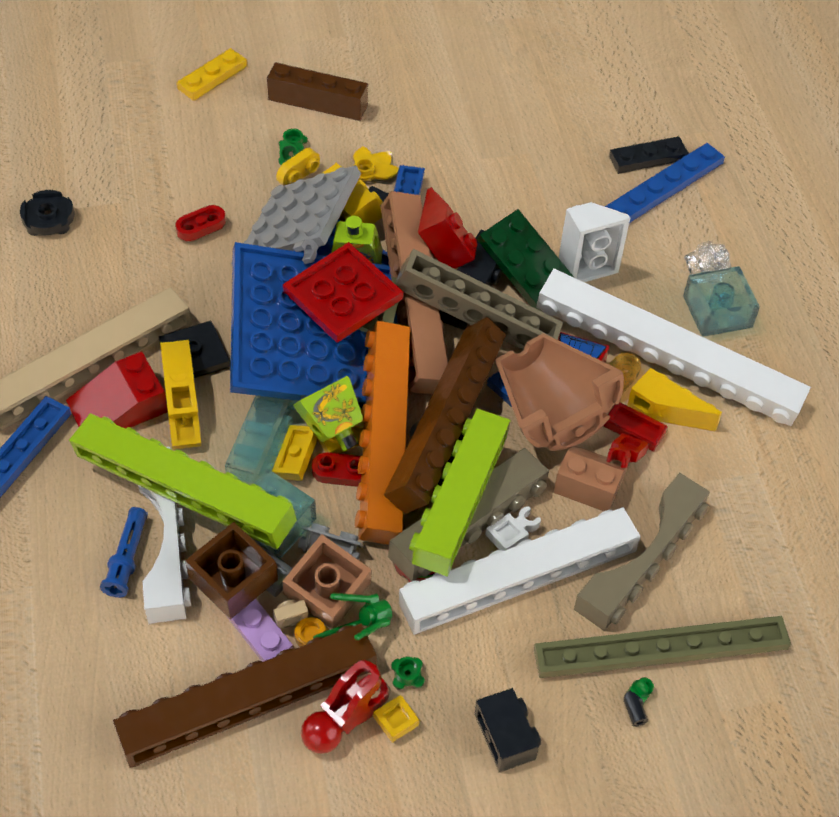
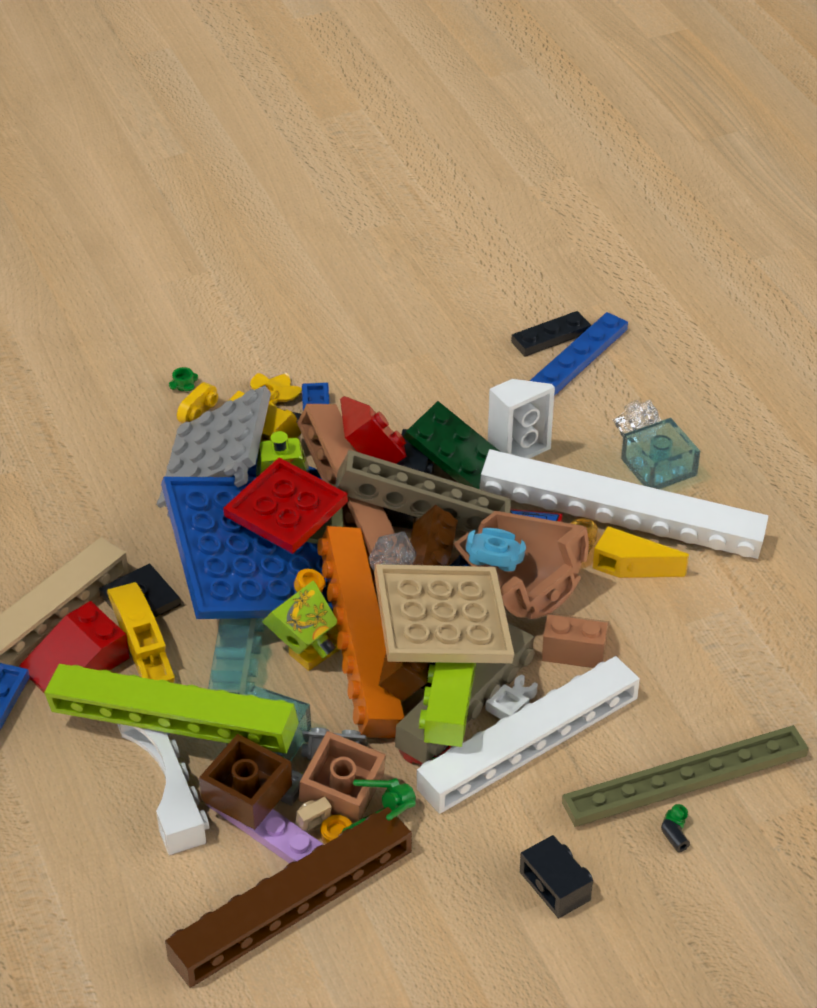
camera: 10 degrees left, 10 degrees down
(122, 562) = (127, 764): blue pin -> none
(200, 223) = (110, 473): red plate -> none
(211, 74) = (77, 330): yellow plate -> none
(286, 148) = (179, 387): green plate -> none
(295, 453) = (274, 667): yellow plate -> none
(317, 91) = (196, 327): reddish brown brick -> none
(340, 470) = (320, 678): red plate -> none
(345, 708) = (393, 885): red piece -> none
(349, 368) = (306, 576): none -> light orange tile
(396, 718) = (445, 888): yellow plate -> none
(409, 664) = (441, 839): green plate -> none
(431, 363) = (393, 550): none -> clear brick
(460, 438) = (442, 614): none -> tan plate
(520, 374) = (495, 548): none -> medium azure plate
(608, 592) = (622, 735): dark tan arch -> none
(627, 449) = (605, 606): red plate -> none
(635, 424) = (606, 585): red tile -> none

